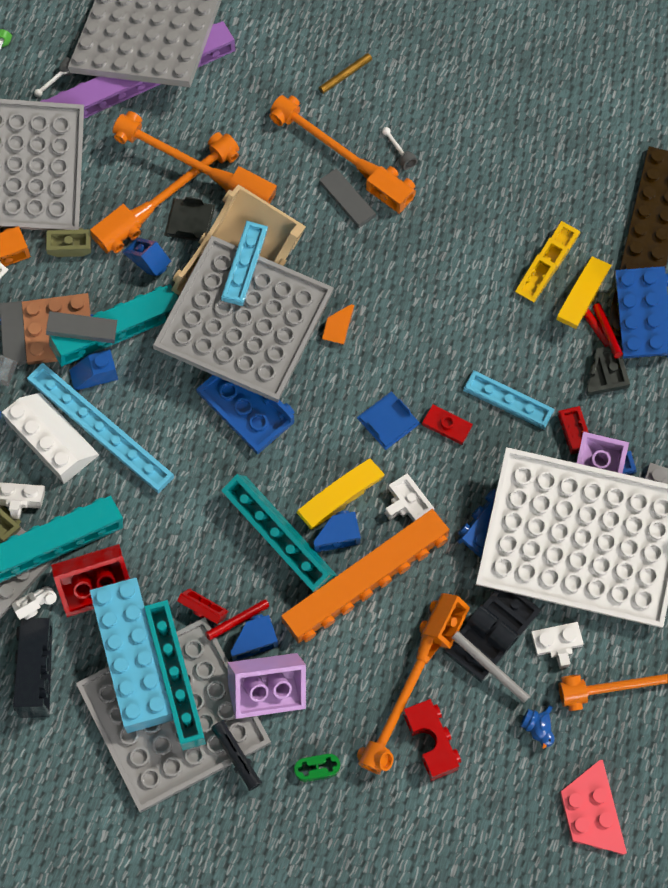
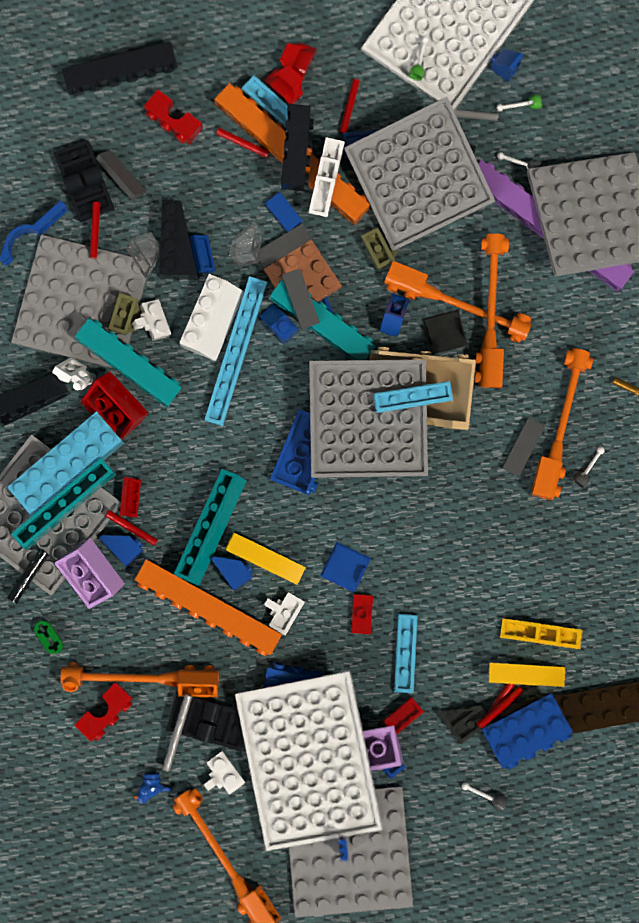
camera: 65 degrees right, 15 degrees up
(338, 325) = (406, 491): orange slope -> none
(592, 811) = (105, 852): coral wing -> none

